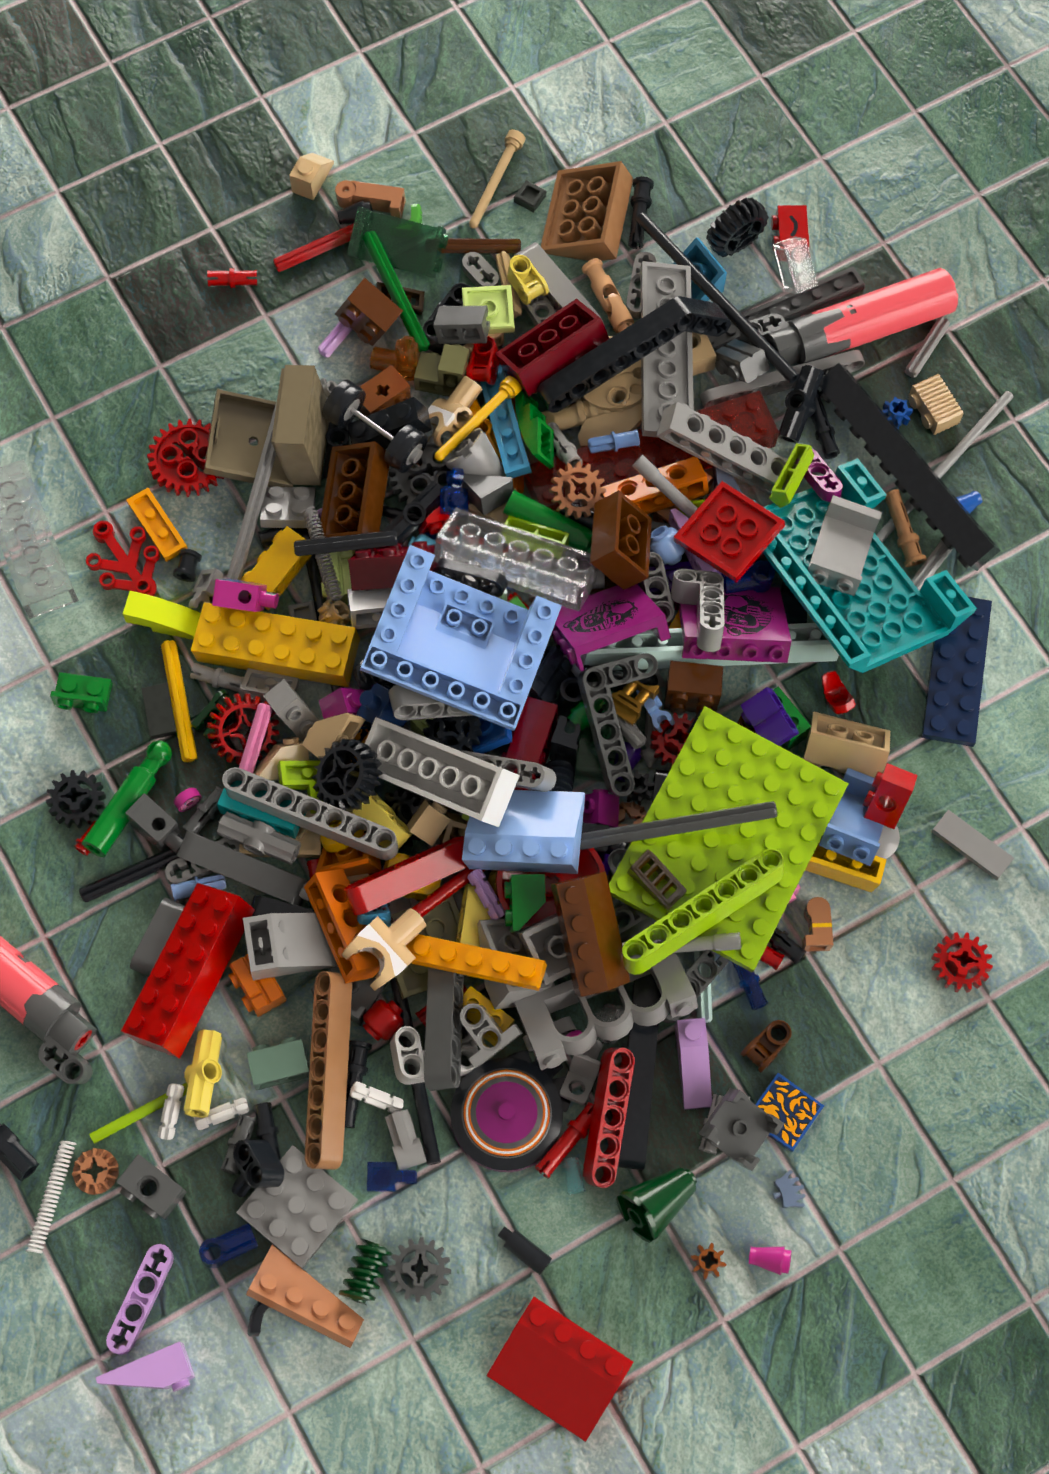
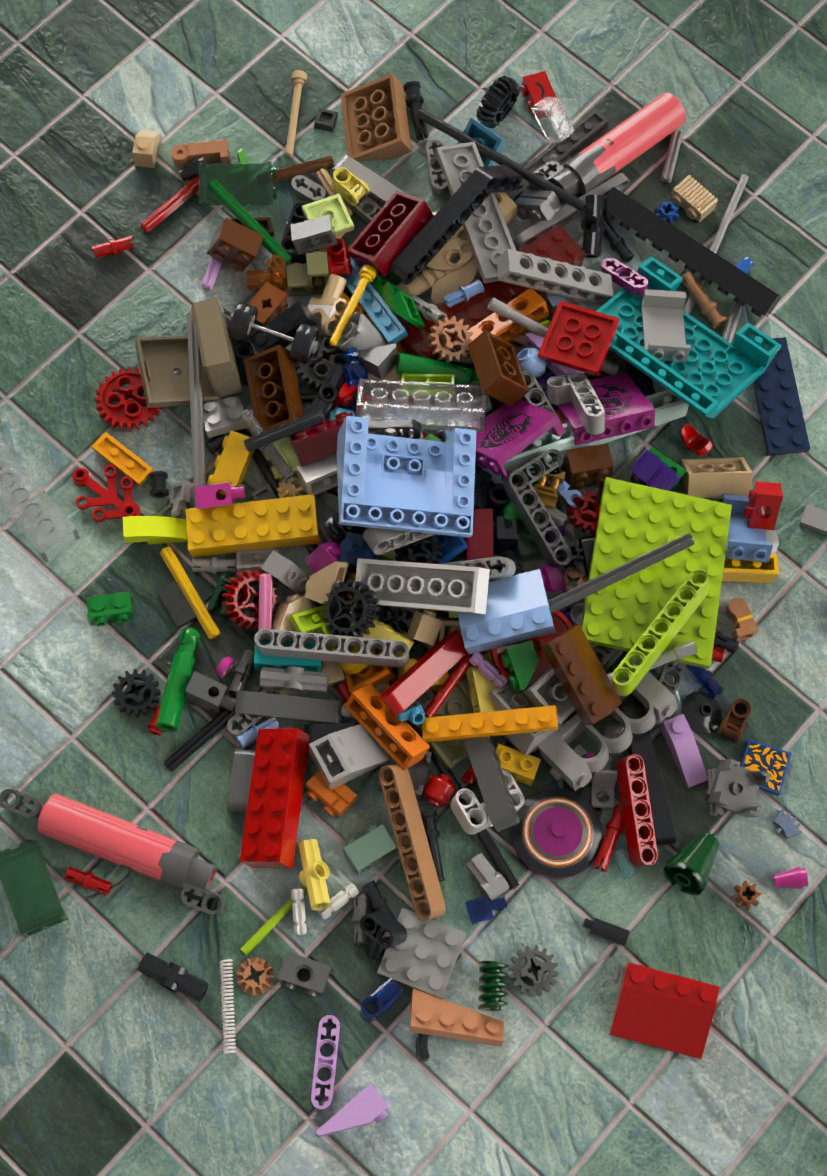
camera: 20 degrees left, 0 degrees up
(376, 1097) = (454, 851): white axle -> none
(388, 944) = (429, 730): tan connector -> none
(478, 1031) = (519, 773): light grey tile -> none
(603, 286) = (422, 188): light nougat piece -> none
(656, 865) = (614, 625): dark brown slope -> none
(720, 1025) = (697, 719): none -> black dish
(750, 580) = (606, 372): clear blue piece -> none
(795, 476) = (612, 264): lime piece -> none

